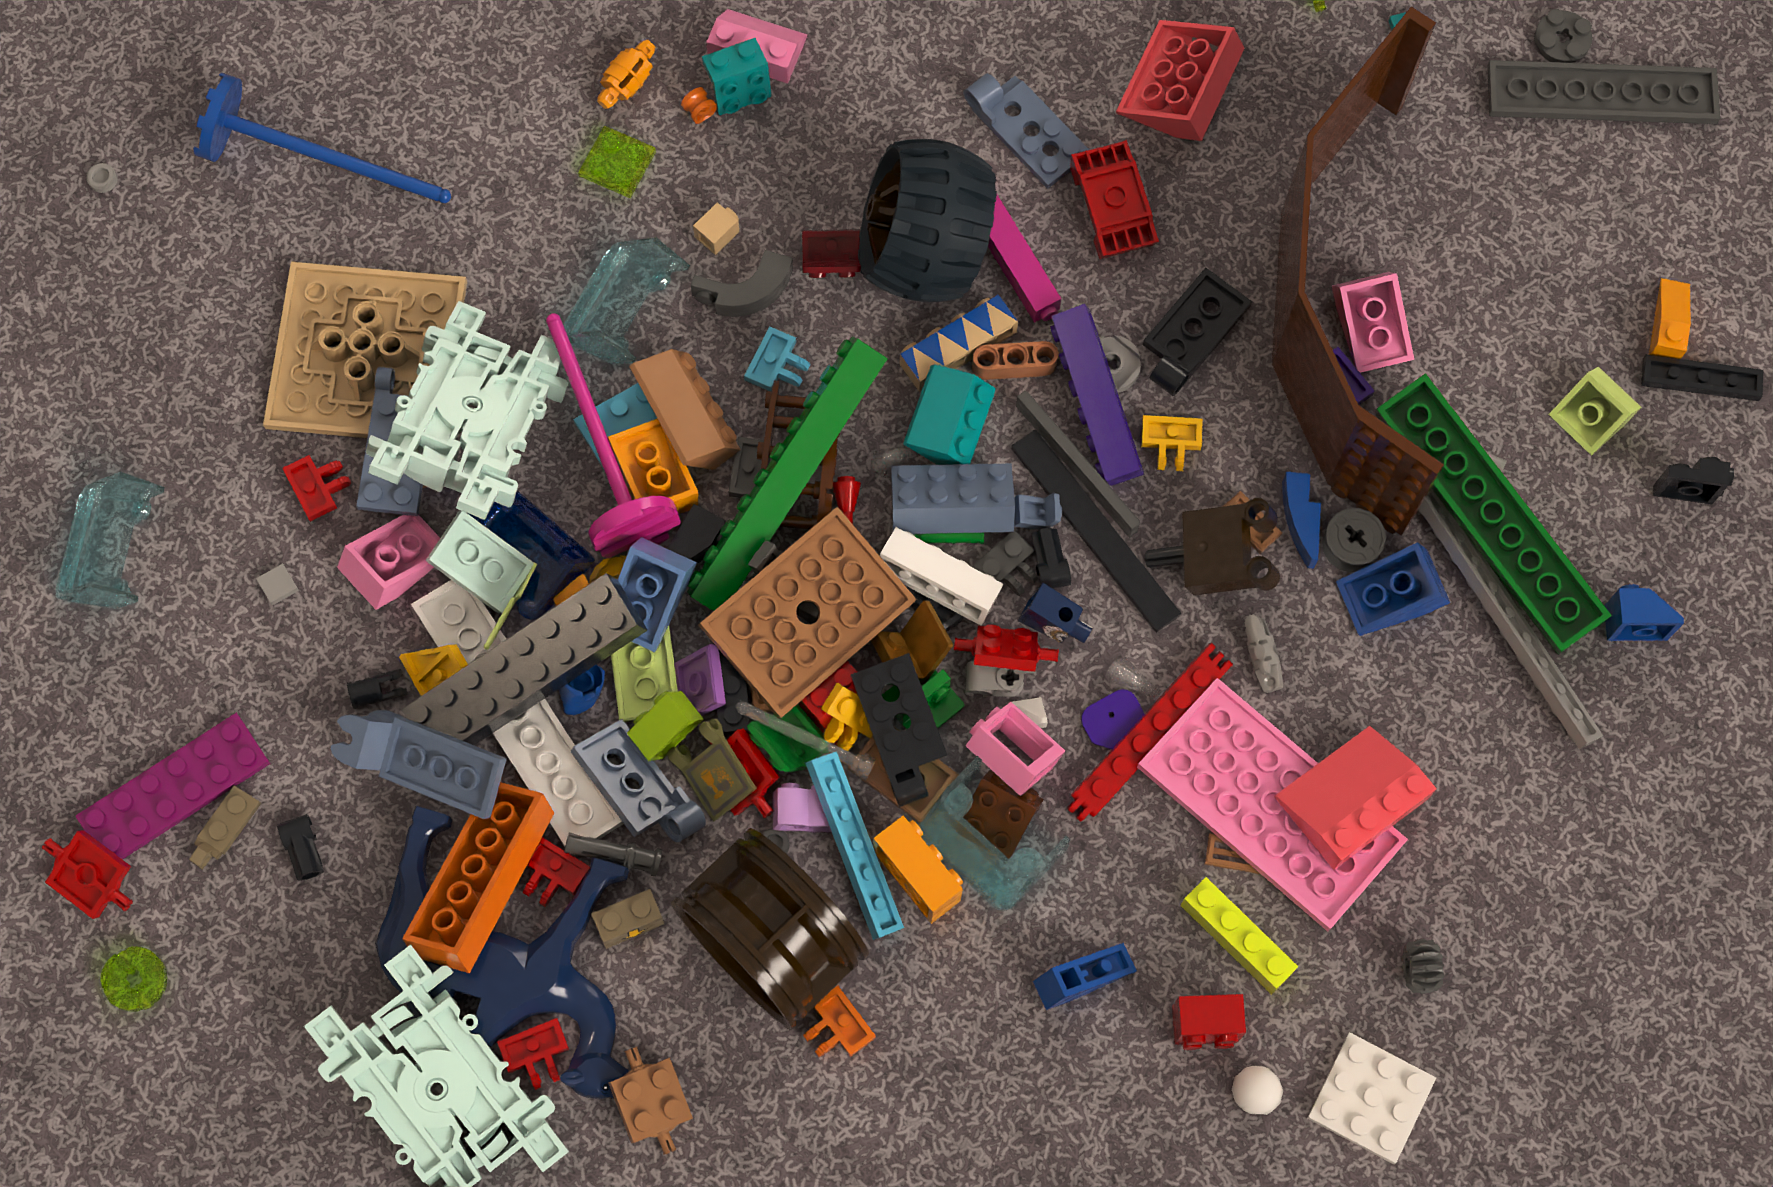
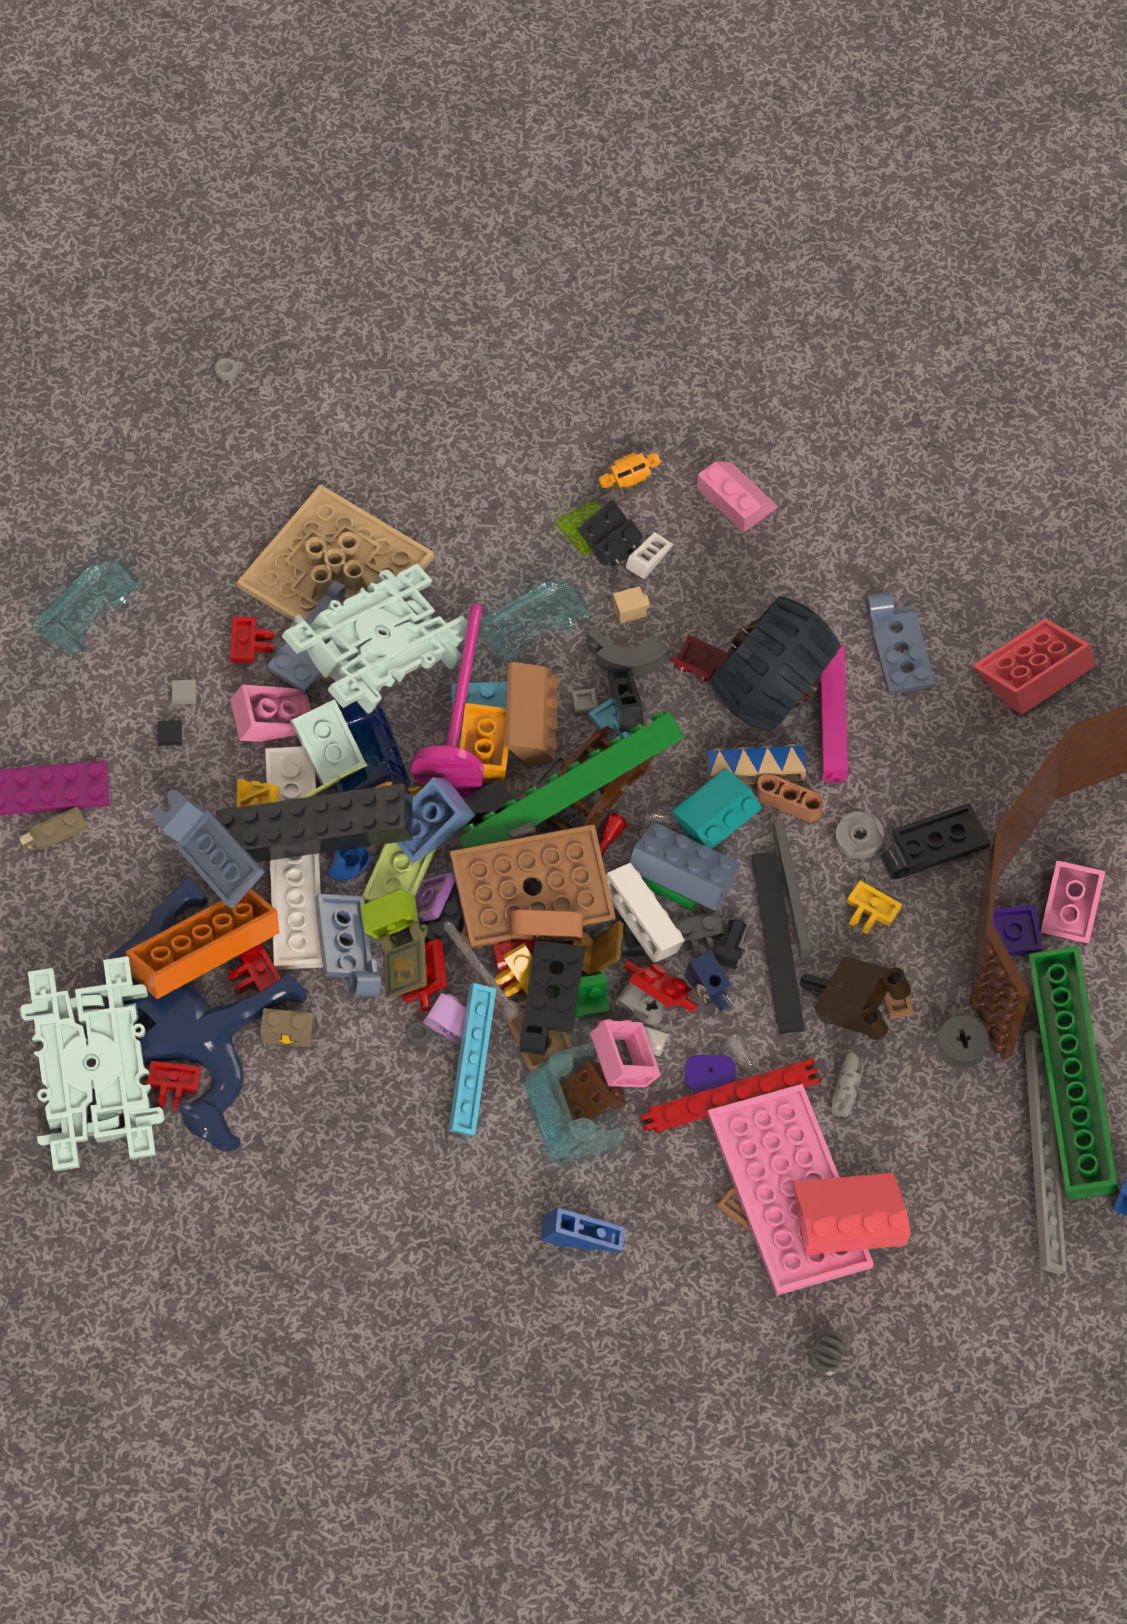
camera: 30 degrees right, 10 degrees down
(223, 118) = (329, 366): blue piece -> none
(289, 641) = (169, 733): none -> black tile
(301, 846) = (97, 867): black piece -> none
(369, 690) = (204, 792): black hinge -> none
(628, 856) = (313, 987): dark grey pin -> none
(649, 158) = (610, 534): none -> black plate
(650, 1100) = (230, 1153): medium nougat plate -> none
(697, 176) = (640, 565): none -> white slope
(699, 105) = (668, 516): orange wheel -> none
(730, 364) = (584, 701): none -> light grey tile
(738, 76) = (706, 508): teal bracket -> none
(770, 927) = (376, 1073): dark brown wheel -> none
(780, 341) = (625, 699): none -> black slope
(785, 752) = (460, 970): green bracket -> none
(844, 1023) = (394, 1172): orange hinge -> none
(851, 650) = (546, 925): none -> nougat beam
(918, 868) = (507, 1097): light orange brick -> none
(1037, 512) = (741, 907): sand blue bracket -> none
(1097, 395) = (833, 848): dark purple brick -> none
(1114, 199) = (929, 723): red plate -> none
(1208, 1020) = (649, 1304): red brick -> none
(1238, 935) = (708, 1263): neon yellow brick -> none
(1257, 1090) = (659, 1374): white hair -> none
(1302, 516) = (935, 1006): blue slope -> none
(1371, 1098) = (738, 1424): white plate -> none
(1393, 590) = (971, 1091): blue slope -> none

